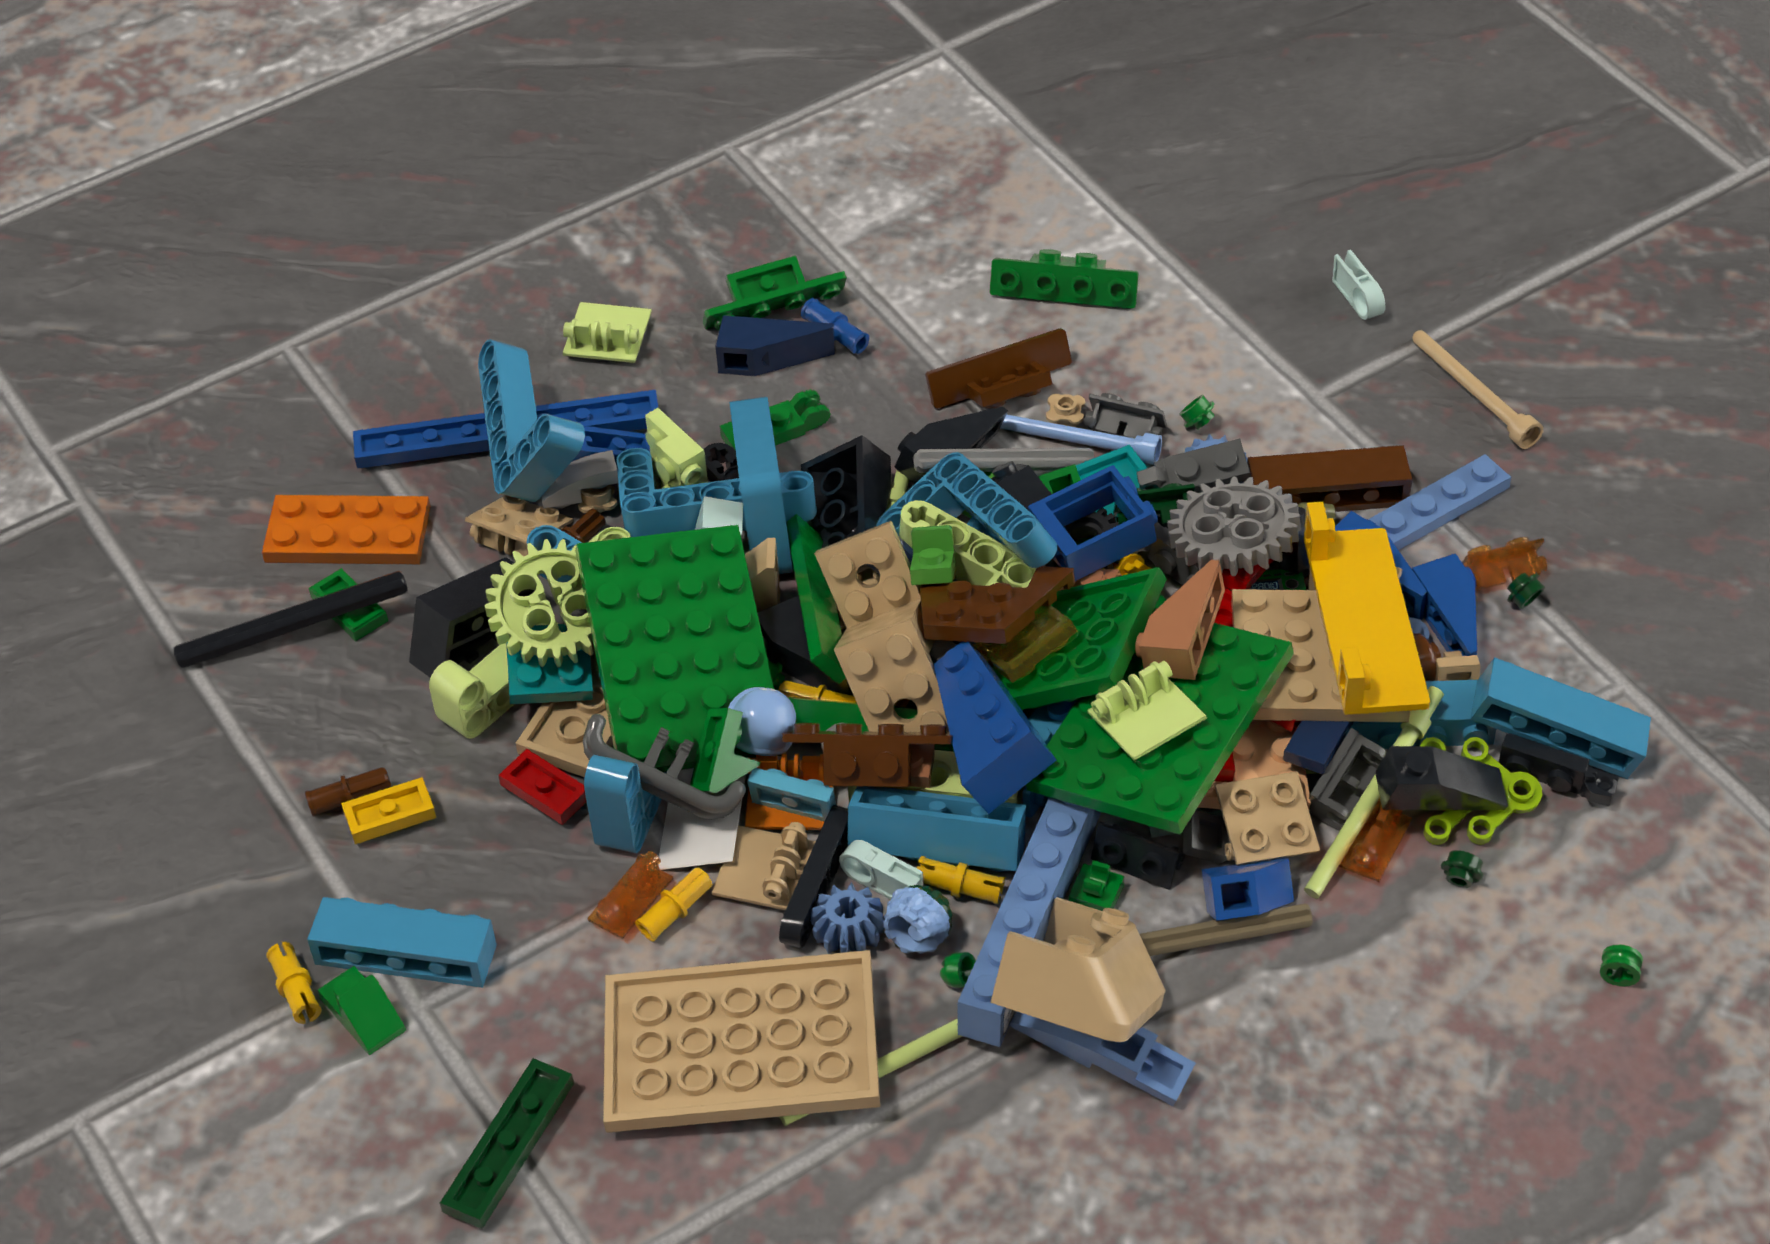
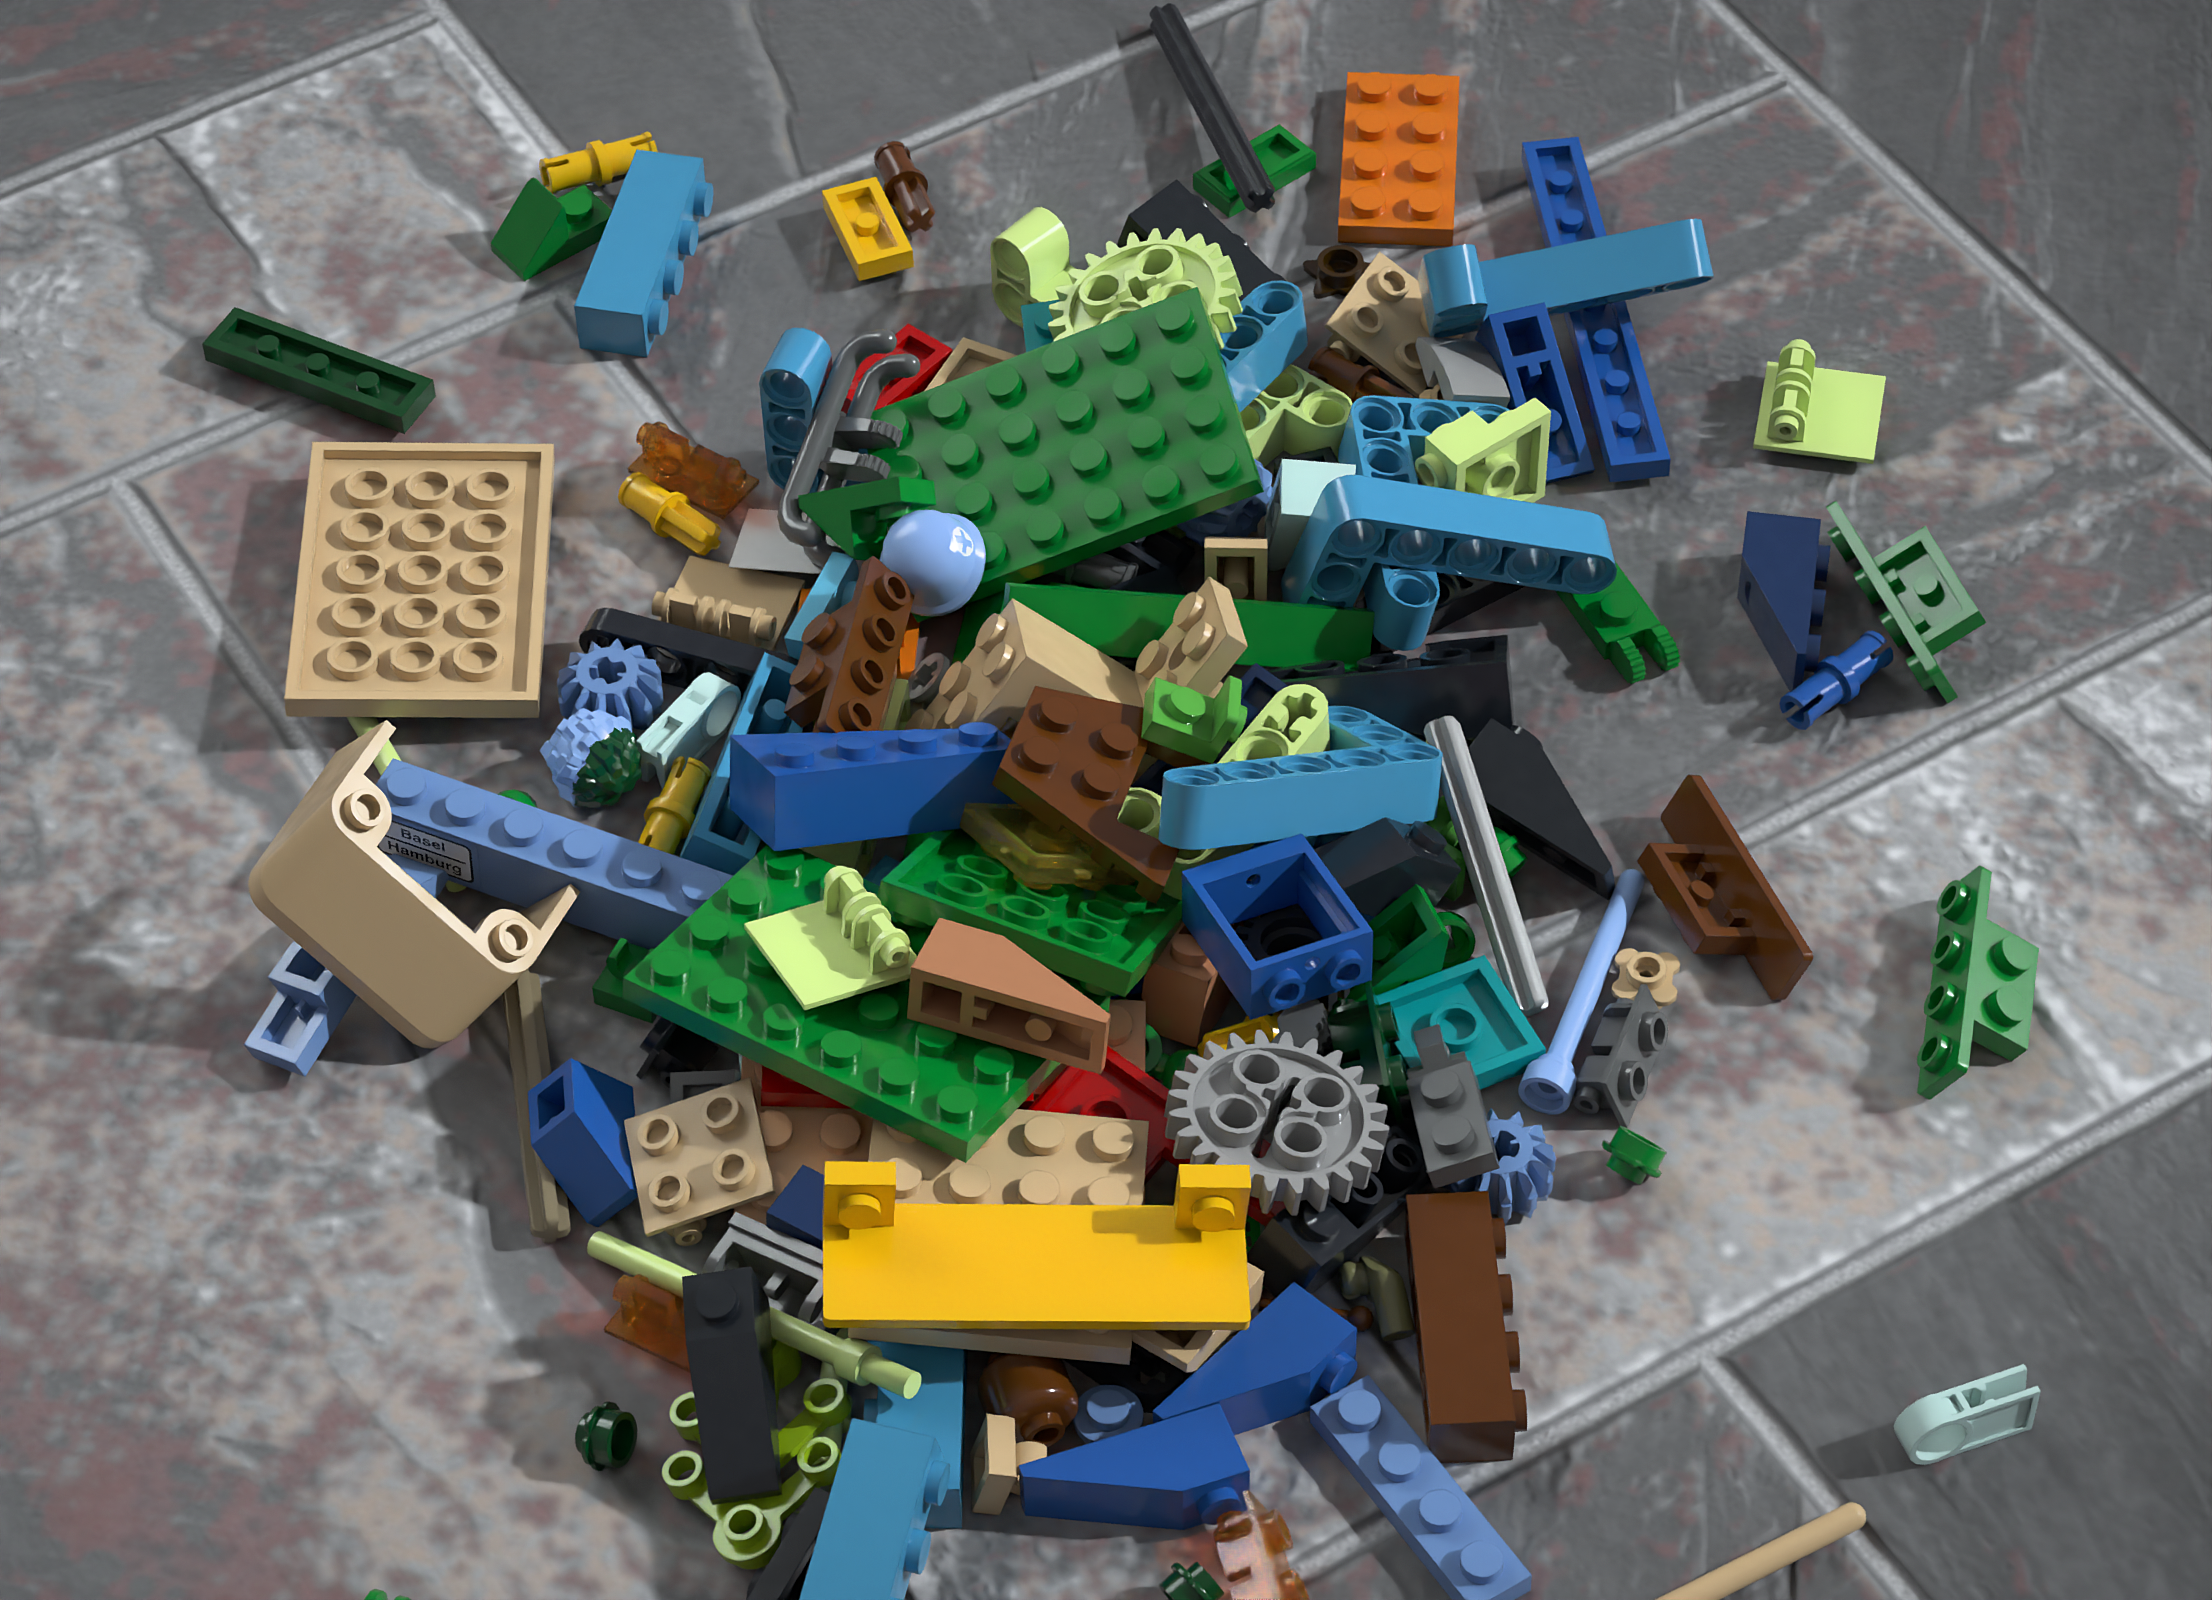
camera: 90 degrees right, 0 degrees up
(453, 550) = (1335, 270): none -> dark brown plate

